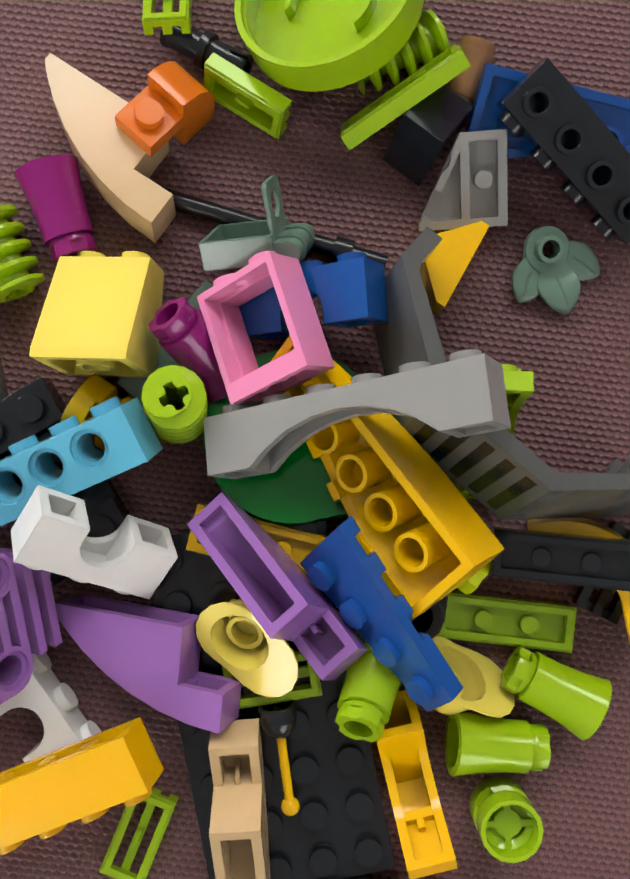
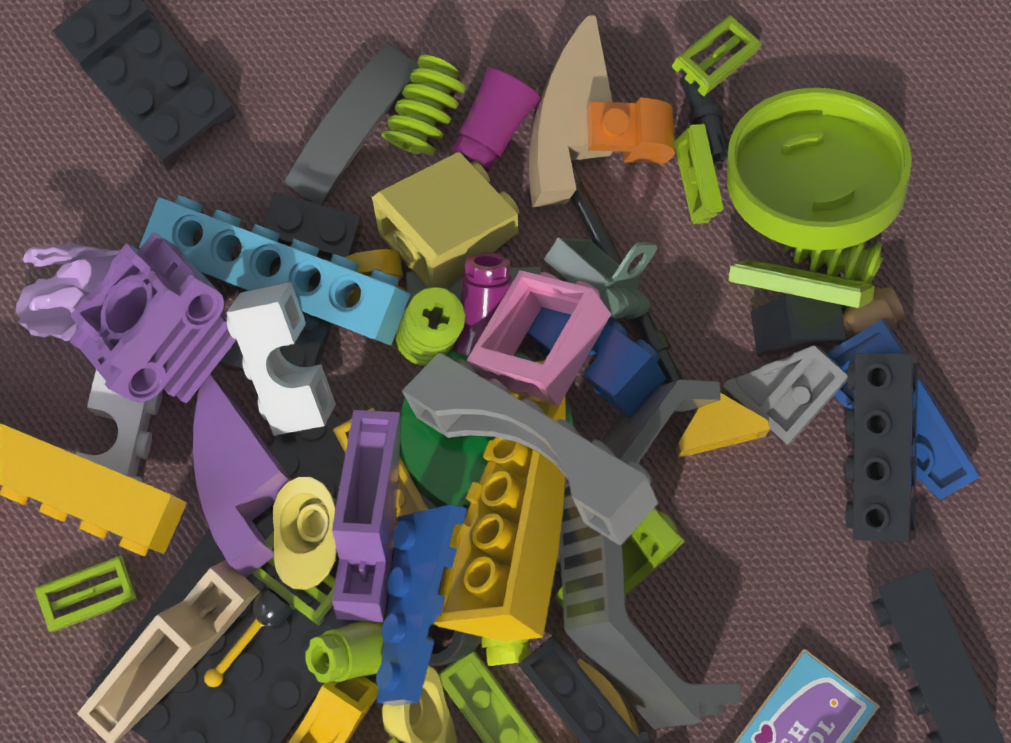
camera: 50 degrees right, 10 degrees down
(555, 277) = (786, 516): sand green plate -> none

